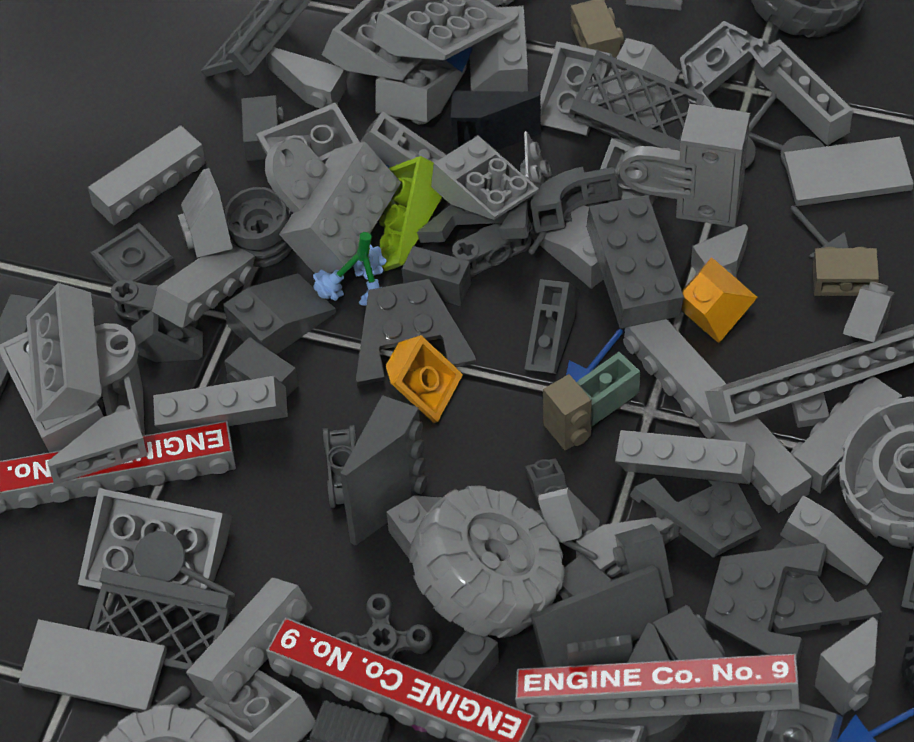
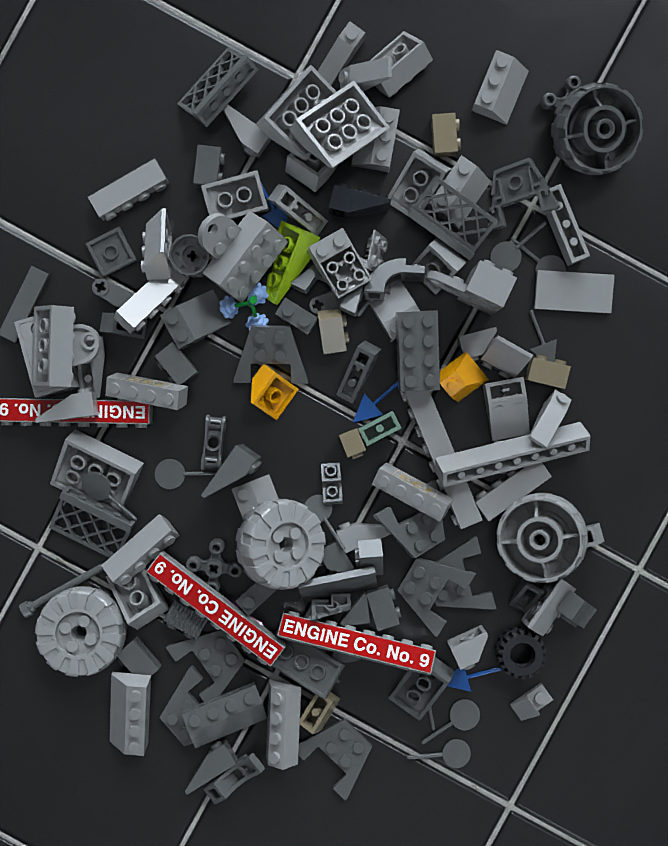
camera: 10 degrees right, 35 degrees up
(93, 666) = (51, 542): light grey tile -> none
(283, 531) = (171, 473): none -> dark grey piece
(496, 276) = (332, 330): none -> dark tan brick
(566, 515) = (333, 518): light grey slope -> none
(772, 249) = (505, 357): none -> light grey slope
(794, 318) = (507, 408): none -> light grey slope
(845, 549) = (480, 561): light grey slope -> none

